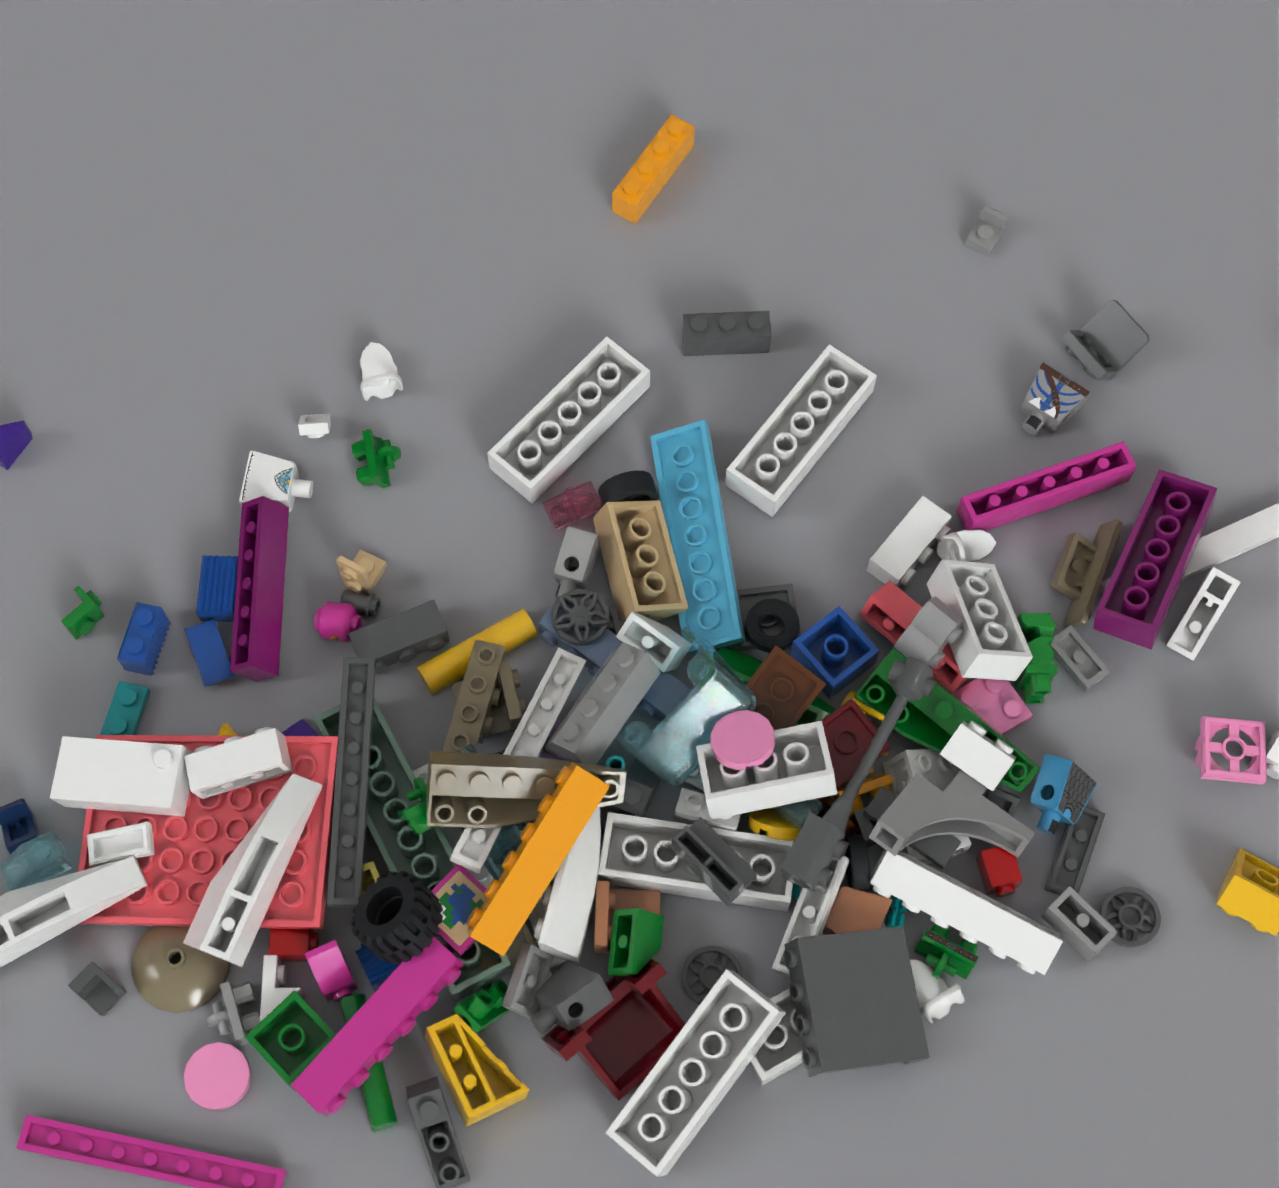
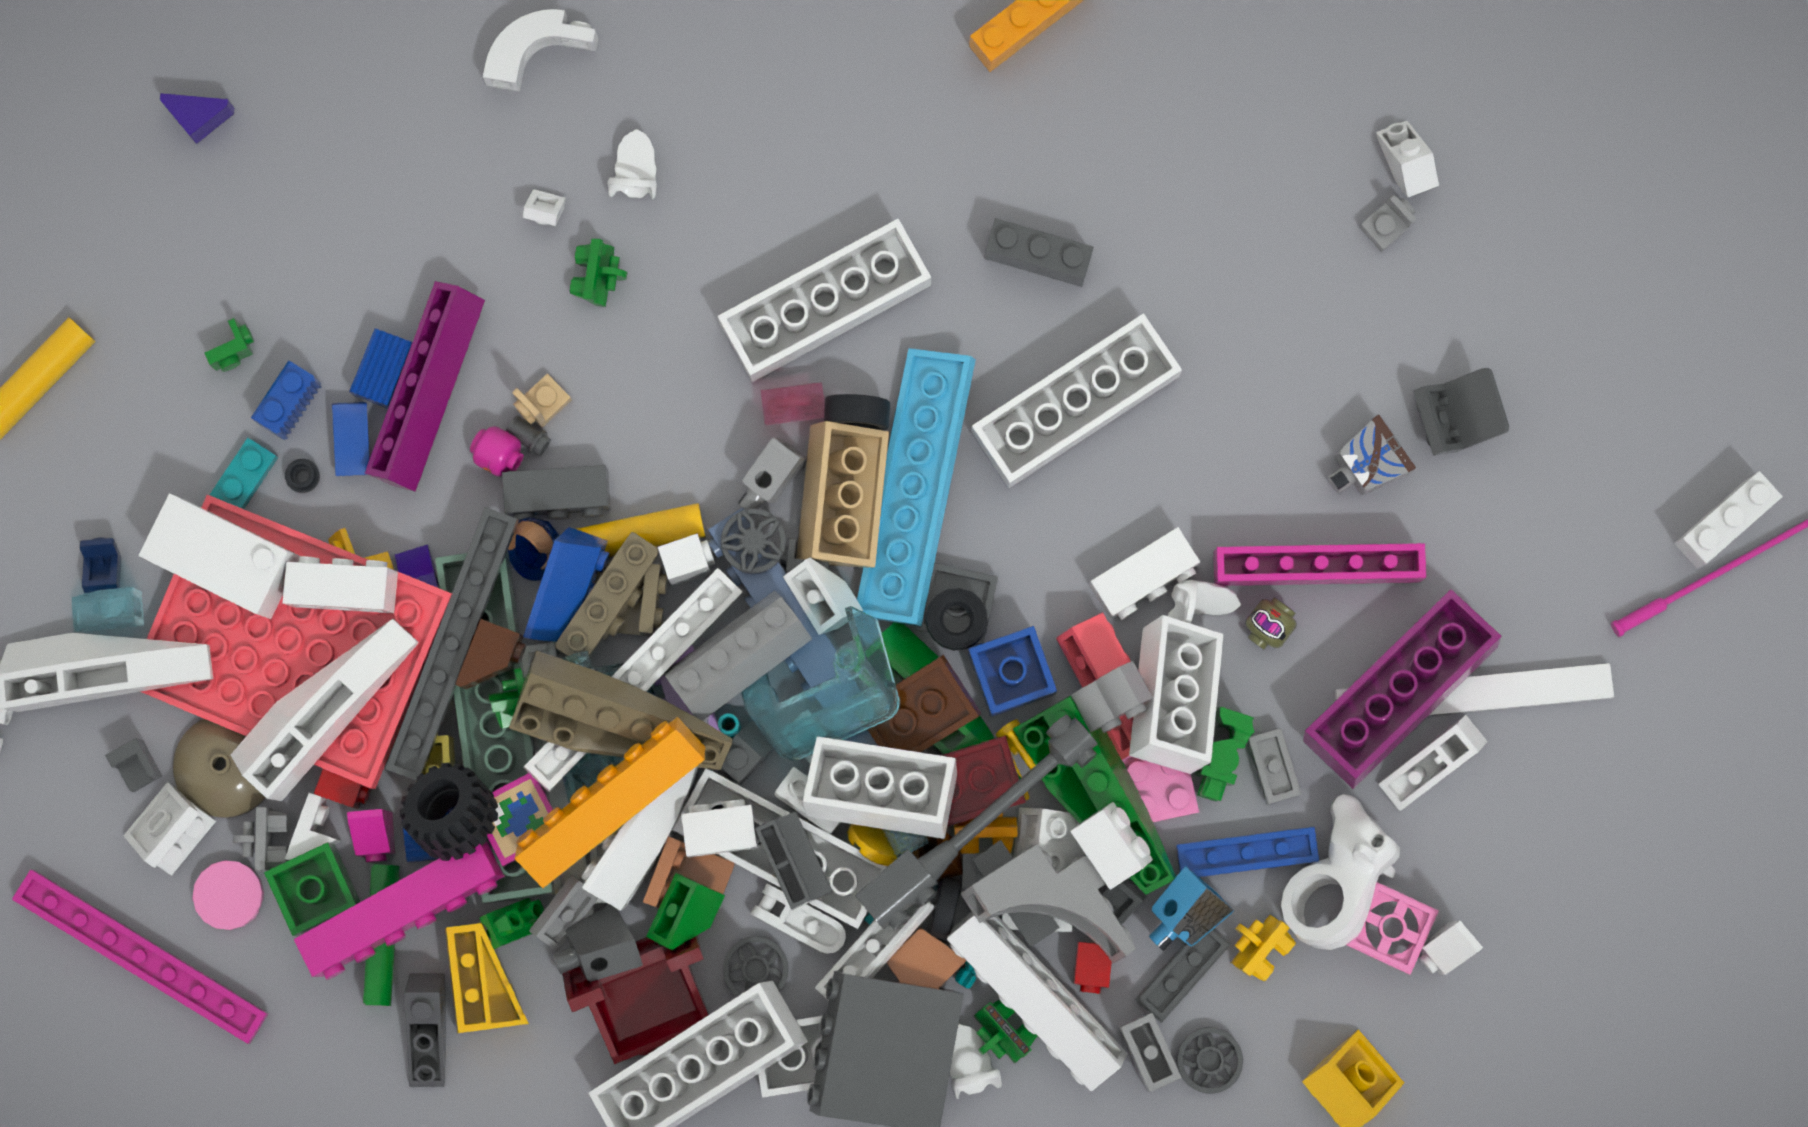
camera: 20 degrees right, 15 degrees up
(120, 844) = (198, 625): white tile -> none
(146, 1034) = (168, 829): none -> white bracket
(173, 689) = (302, 465): none -> black plate
(260, 303) = (525, 37): none -> white arch
(274, 479) = (476, 264): white torso -> none
(388, 776) = (490, 654): none -> reddish brown slope
(396, 688) = (532, 547): none -> clear blue piece
(433, 701) = (565, 583): none -> blue slope
(529, 651) = (686, 560): none -> white brick
(640, 855) = (719, 829): none -> white brick
(735, 920) = (801, 923): none -> white plate
(742, 739) = (865, 750): bright pink tile -> none
(982, 181) = (1408, 158): none -> white slope
(1027, 547) = (1271, 623): none -> olive head
(1082, 570) = (1321, 669): dark tan bracket -> none
(1090, 731) = (1249, 852): none -> blue plate
(1128, 803) = (1258, 942): none -> yellow hips
(1180, 706) = (1356, 858): none -> white animal

